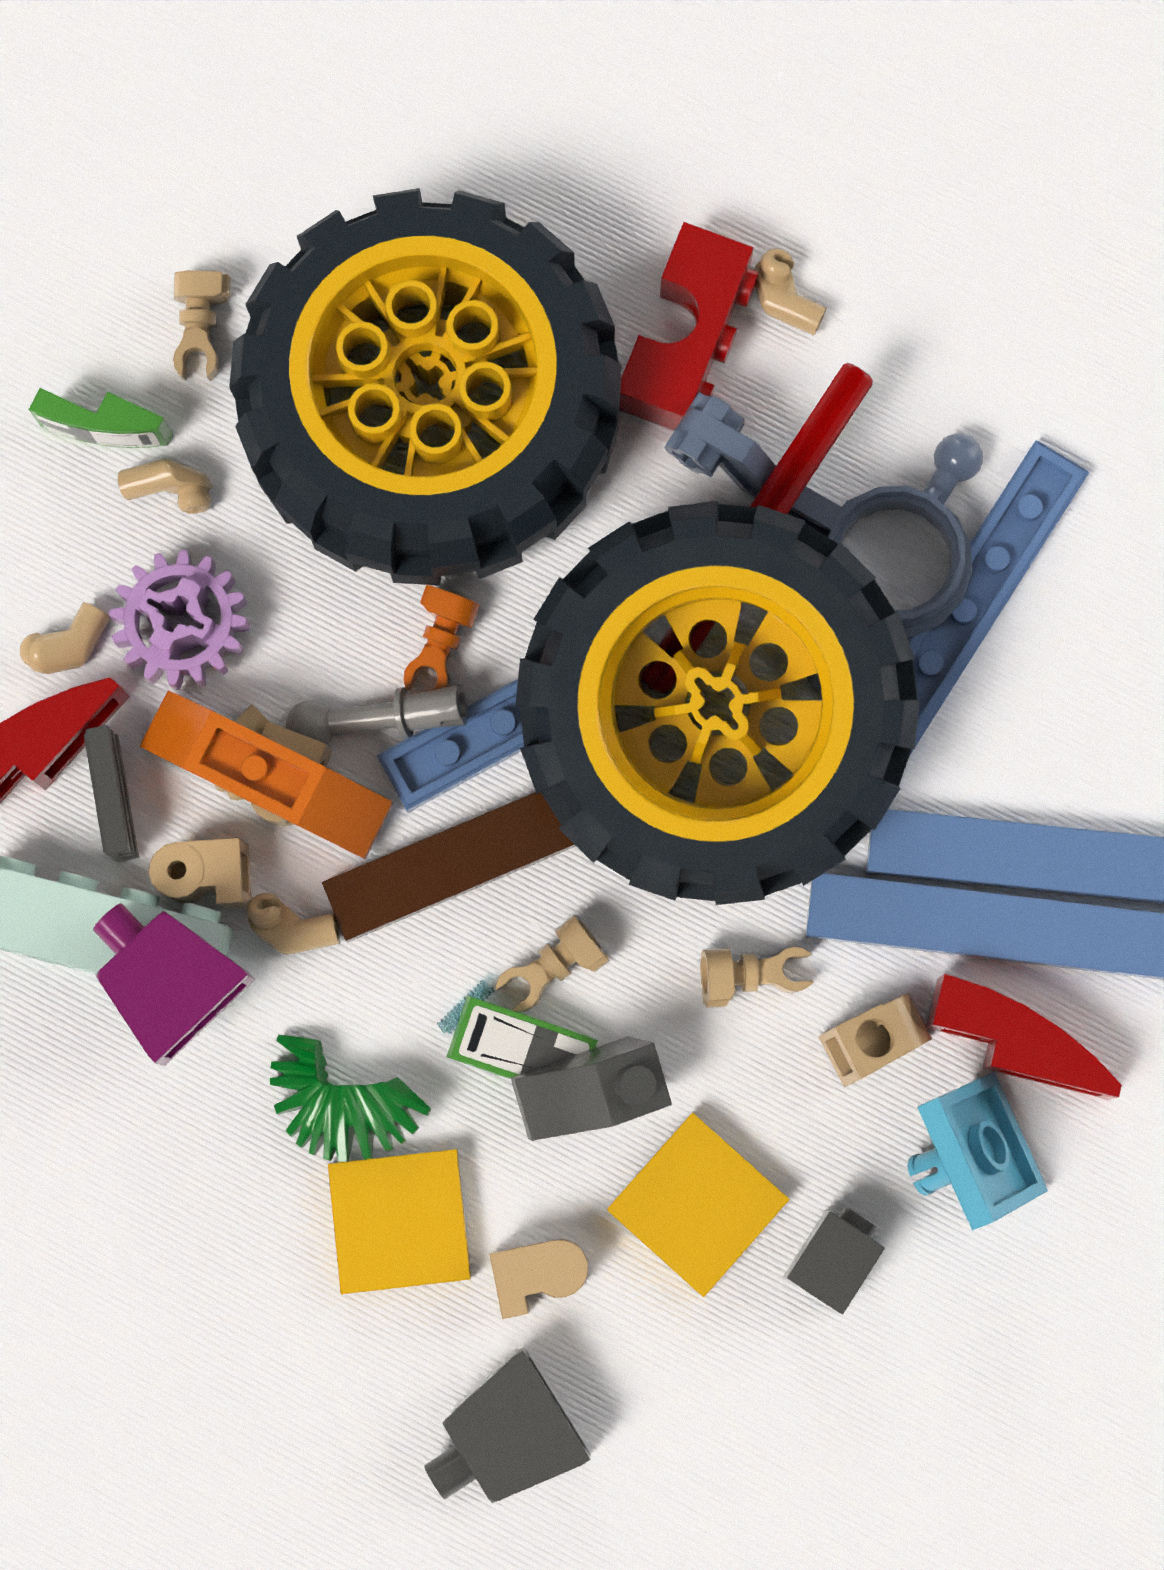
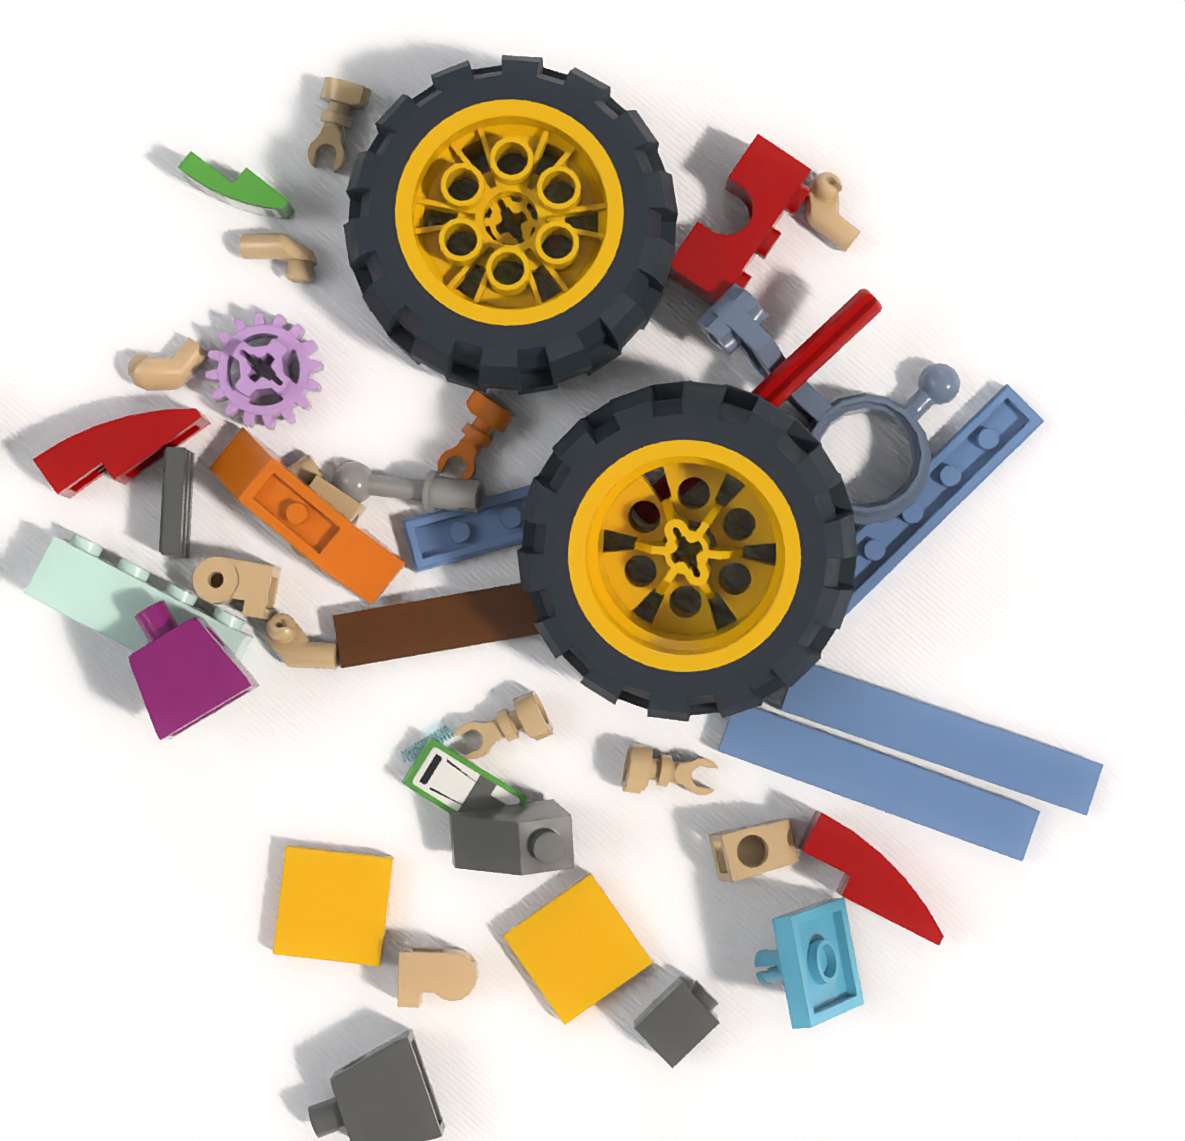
camera: 10 degrees right, 5 degrees up
(335, 1112) = (302, 807): green hair -> none

